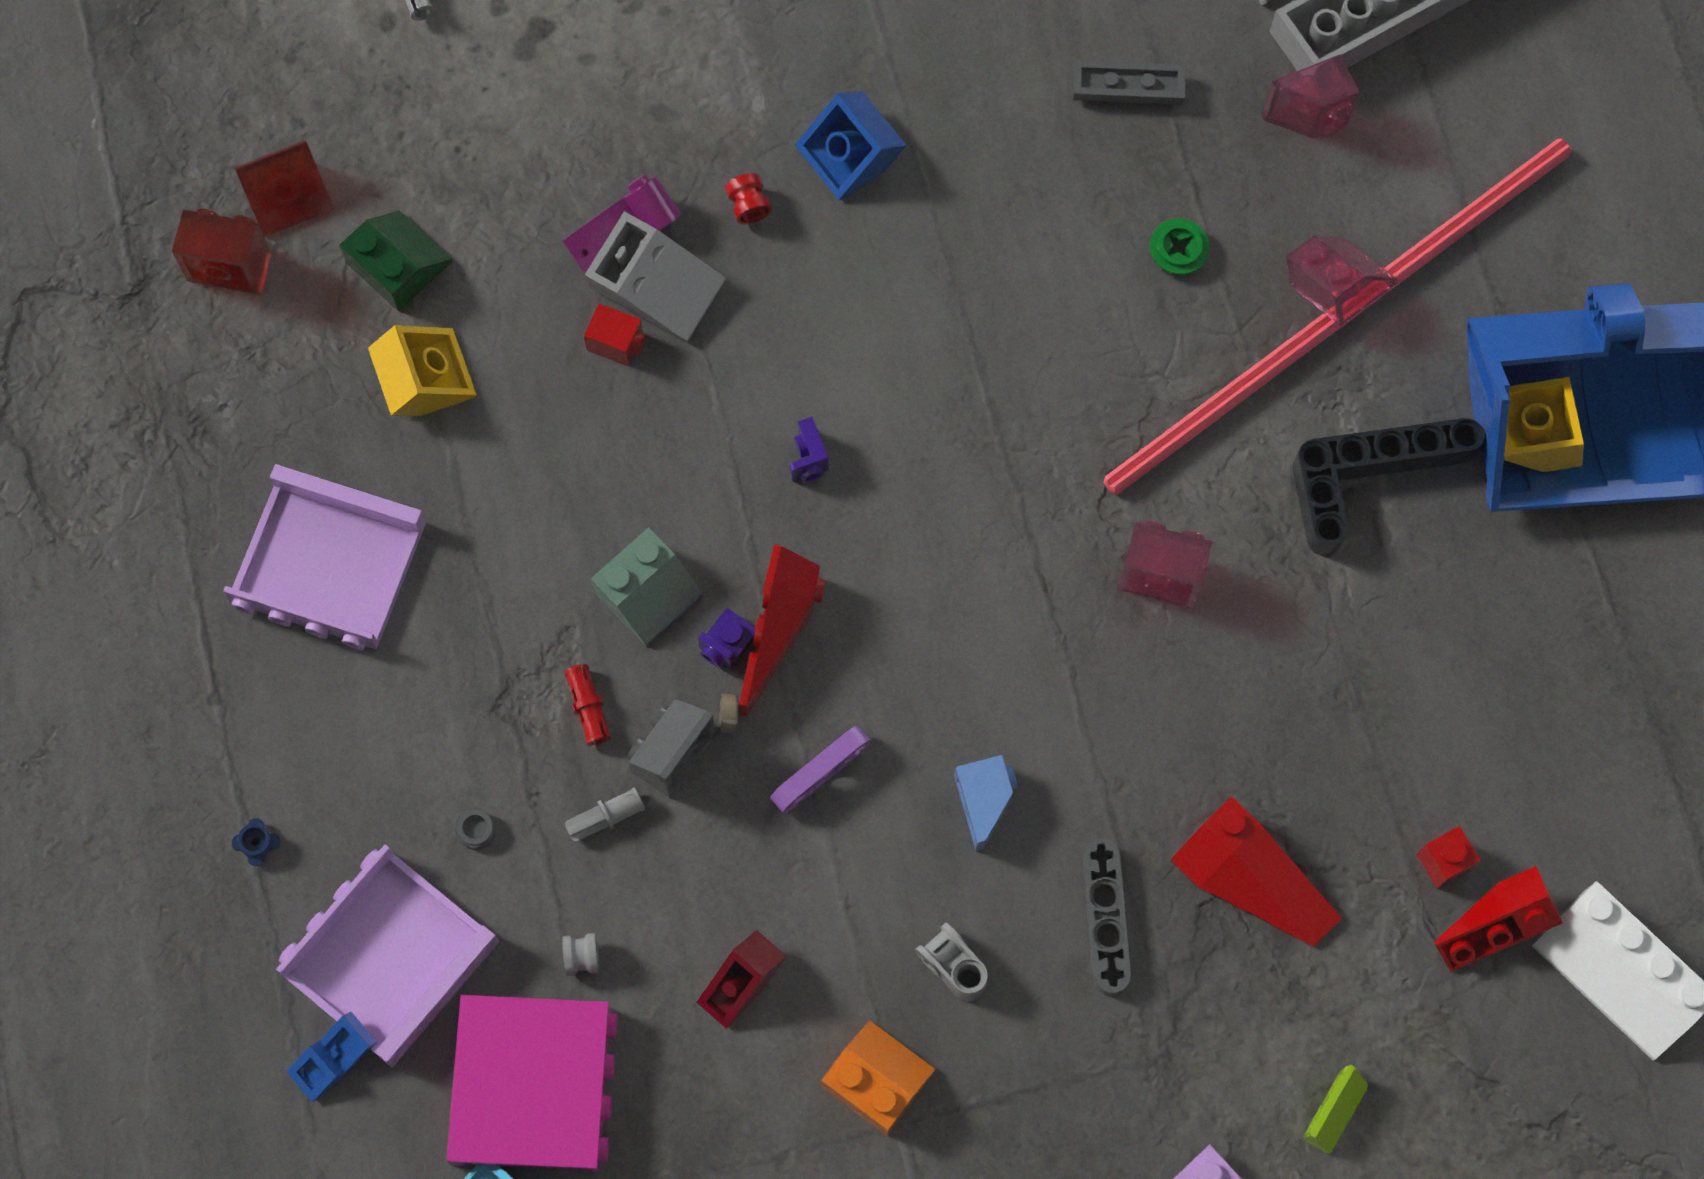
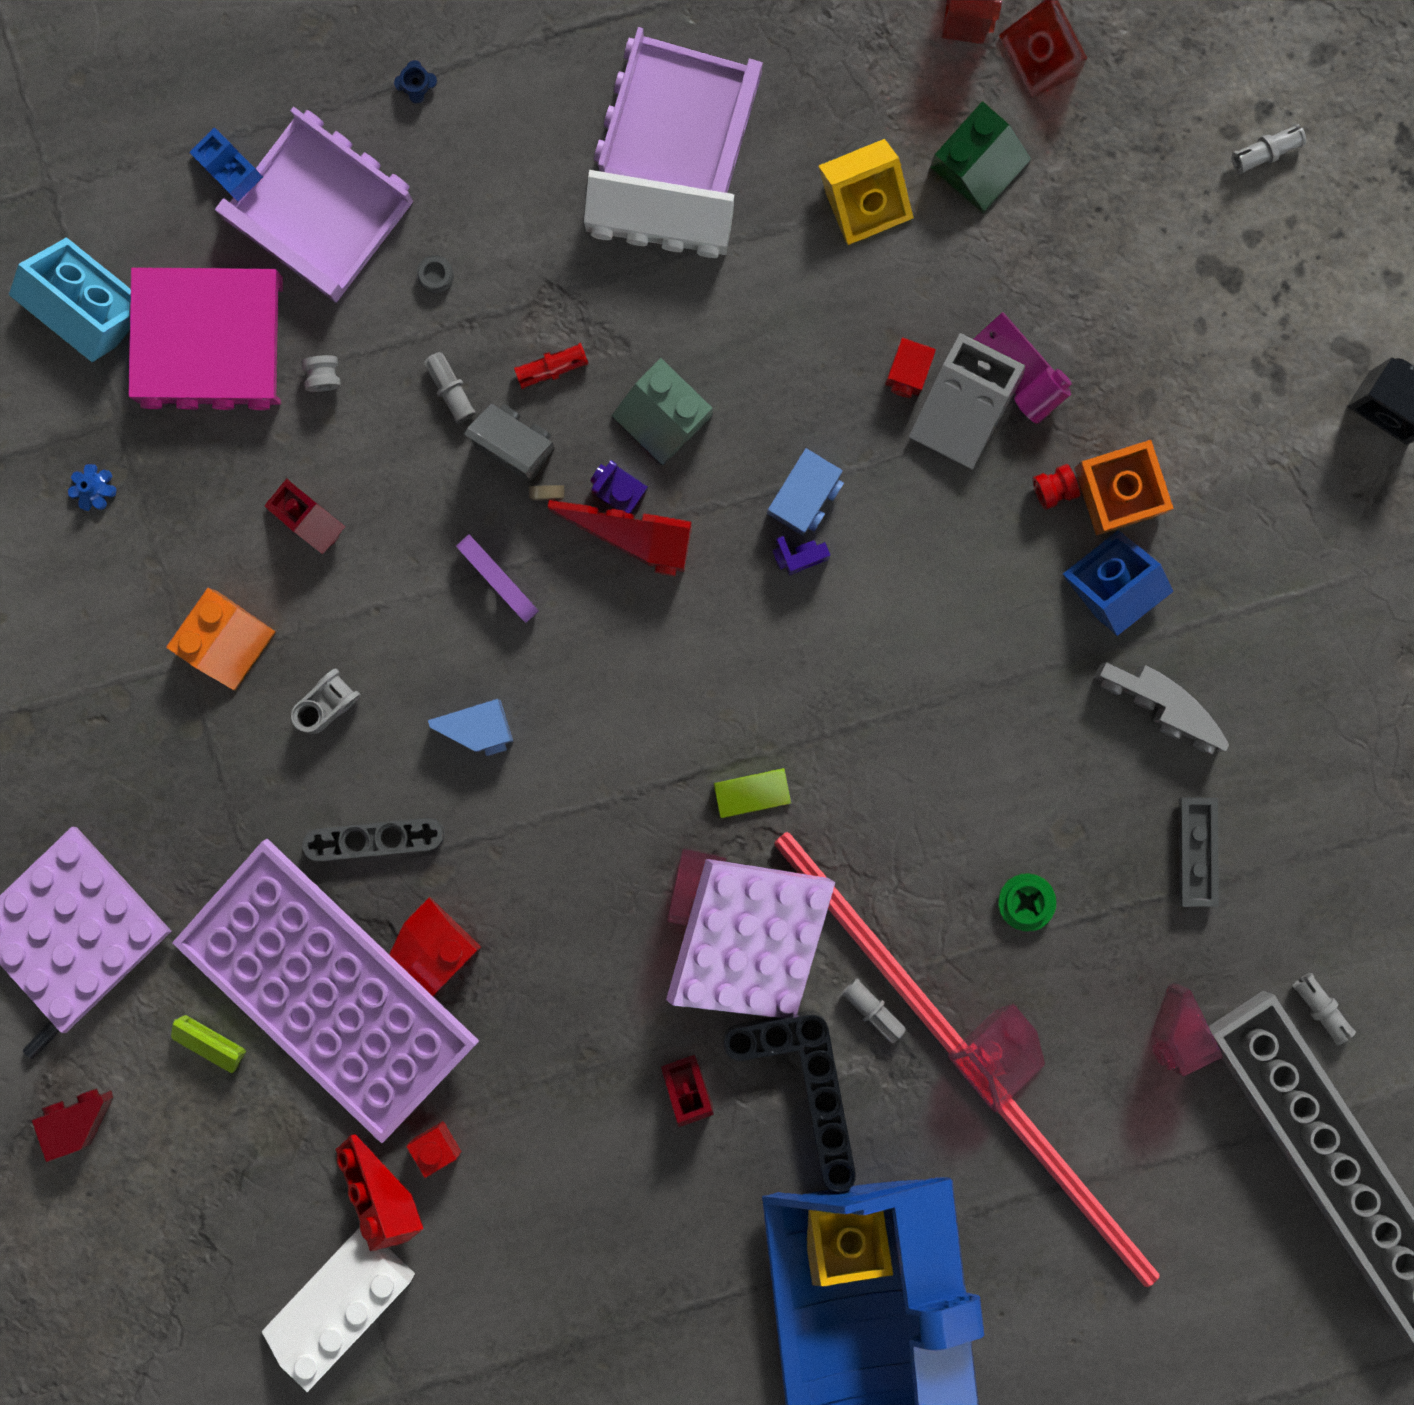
camera: 90 degrees right, 15 degrees up
(431, 579) = (658, 213): none -> white slope
(742, 444) = (805, 492): none -> medium blue brick
(754, 130) = (1123, 487): none -> orange brick
(978, 99) = (1176, 711): none -> light grey slope
(1060, 514) = (752, 793): none -> lime slope
(1221, 507) = (750, 940): none -> lavender plate
(1275, 969) = (325, 991): none -> lavender plate
(1292, 401) = (873, 1011): none -> light grey axle
(1381, 588) = (687, 1091): none -> dark red slope

